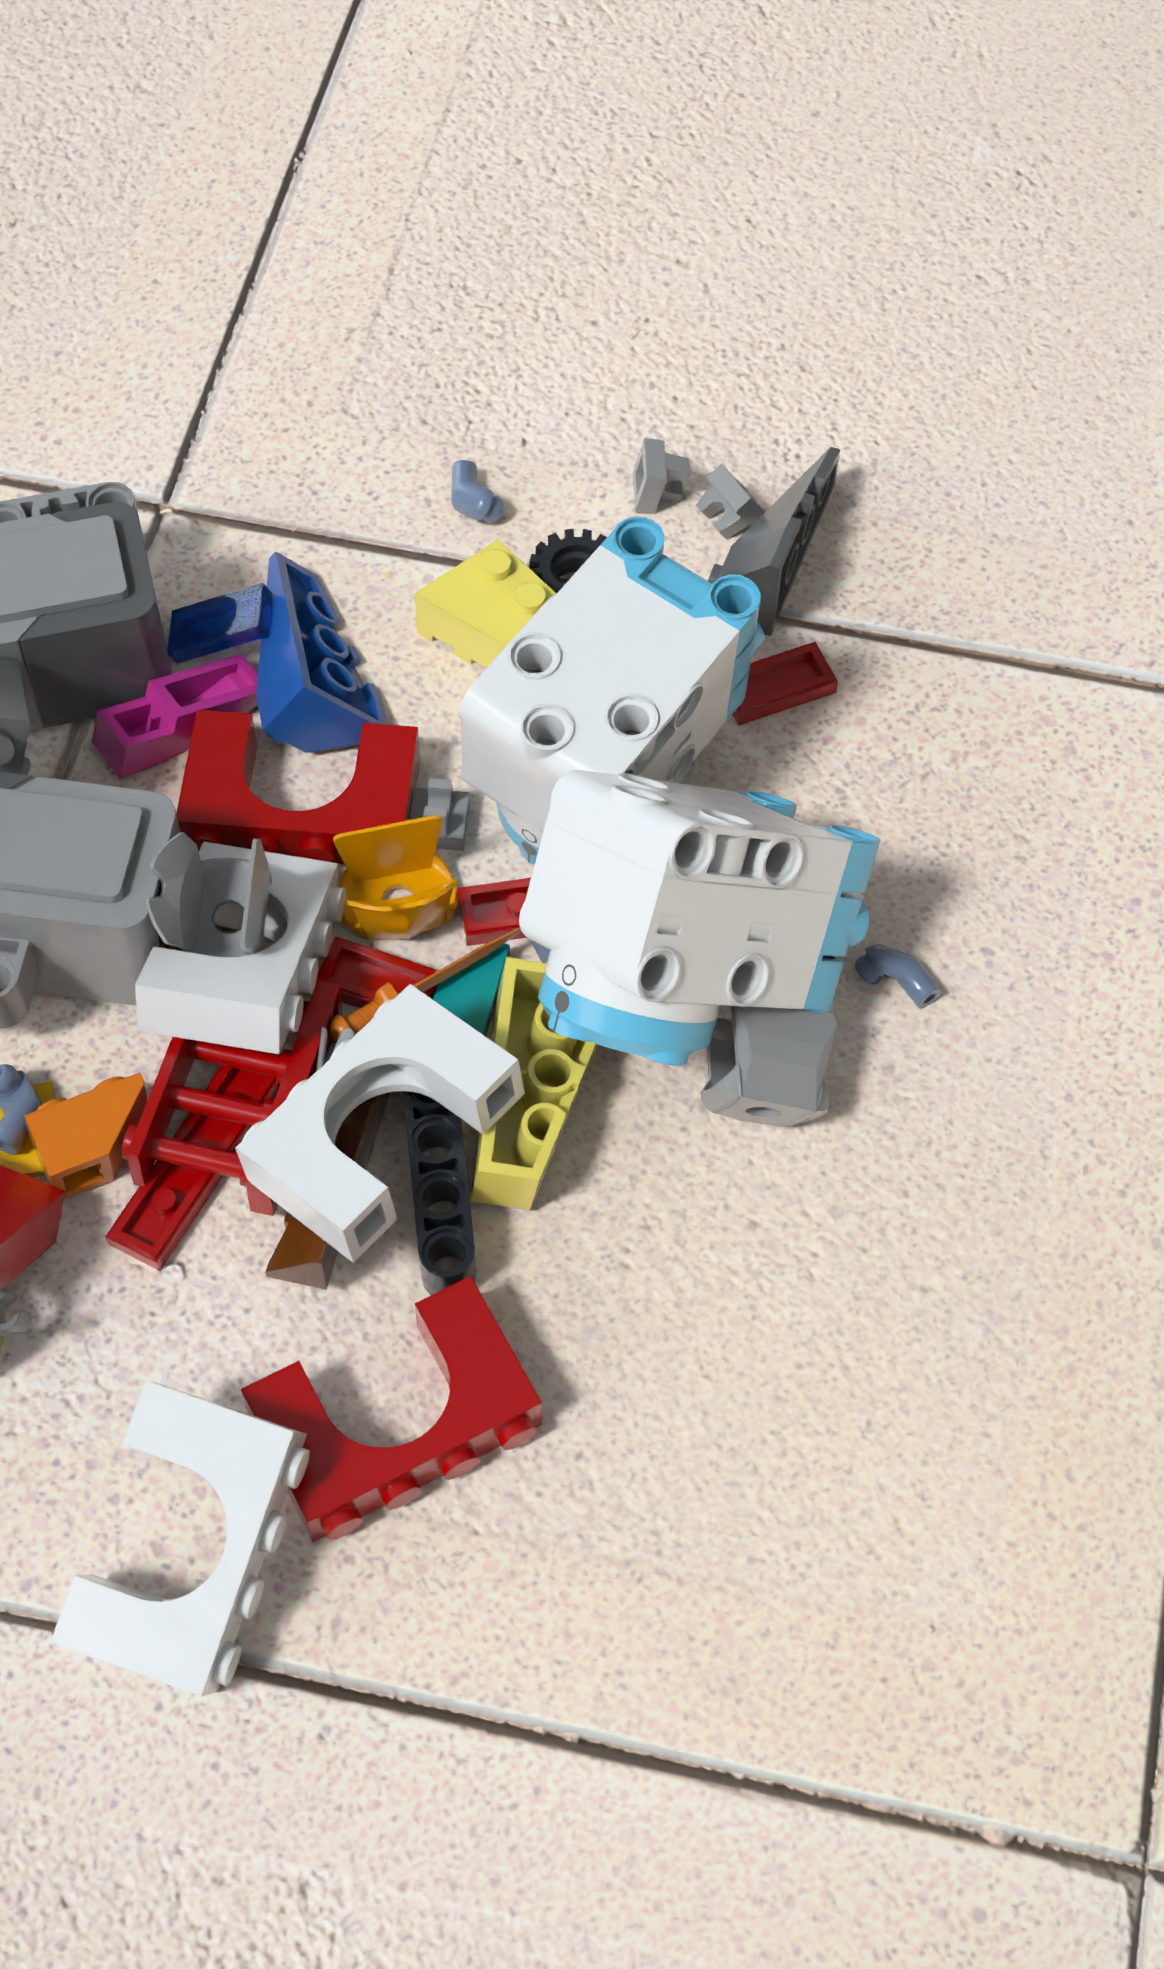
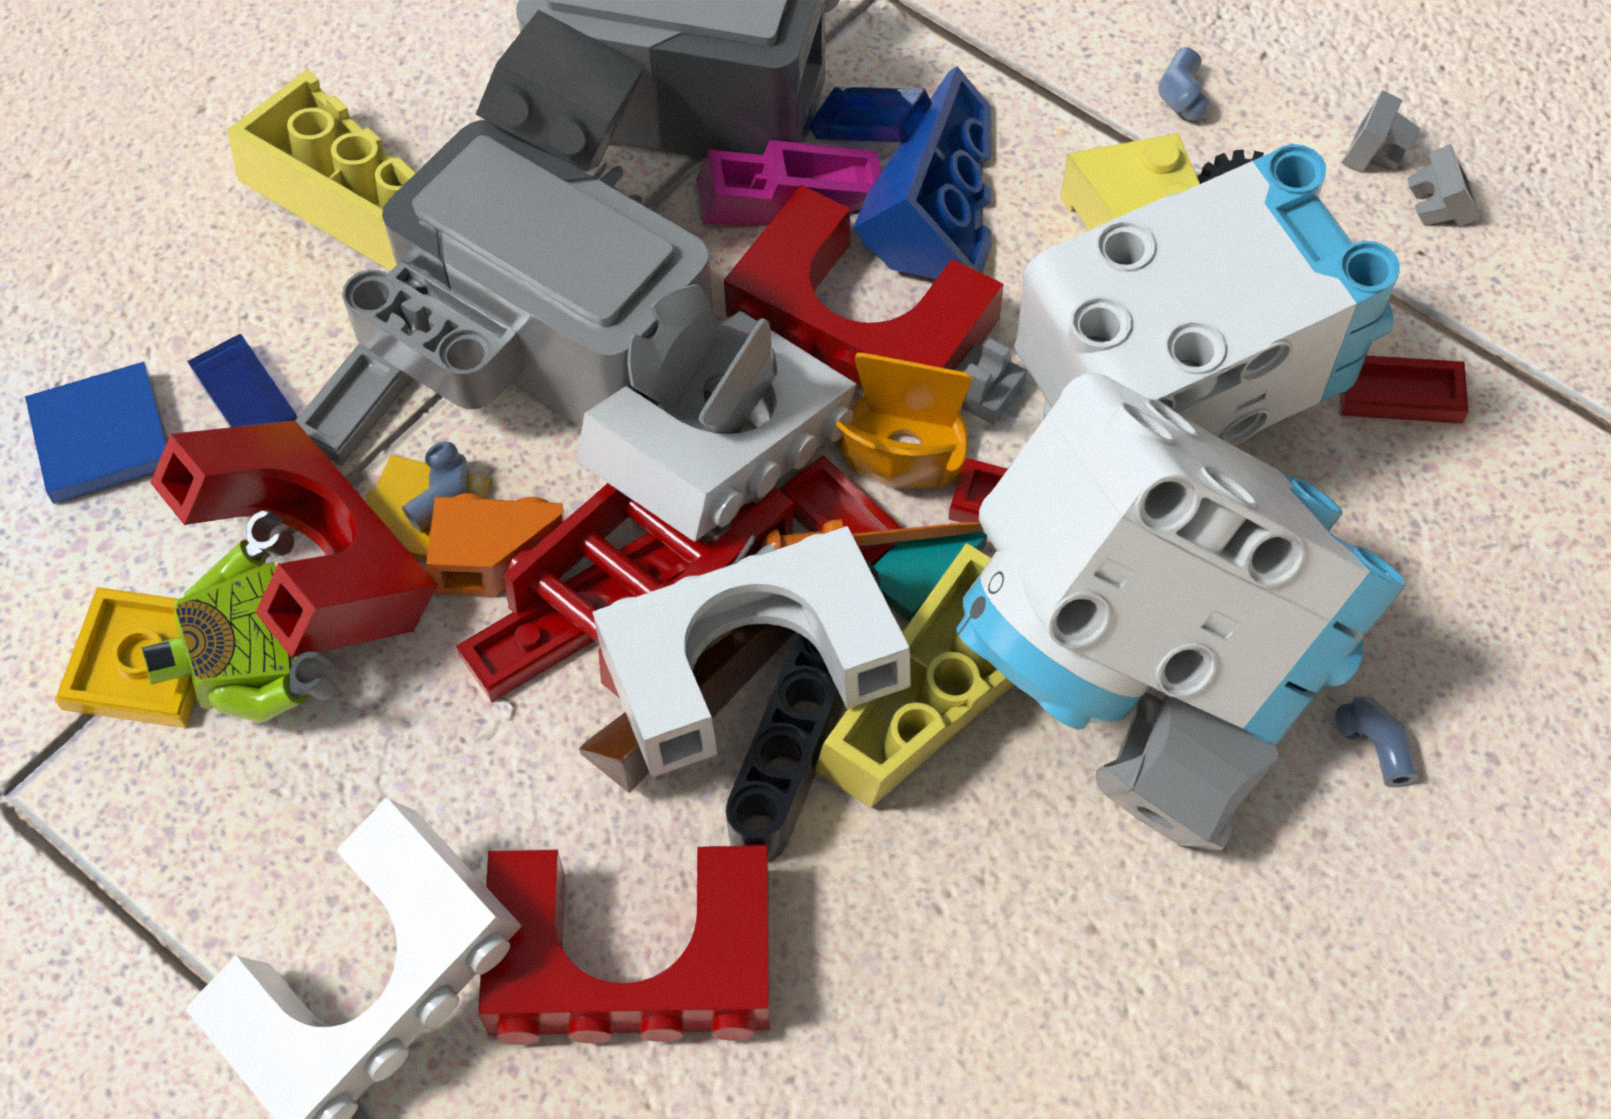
camera: 30 degrees right, 0 degrees up
(779, 540) = (1462, 254): dark grey wedge -> none

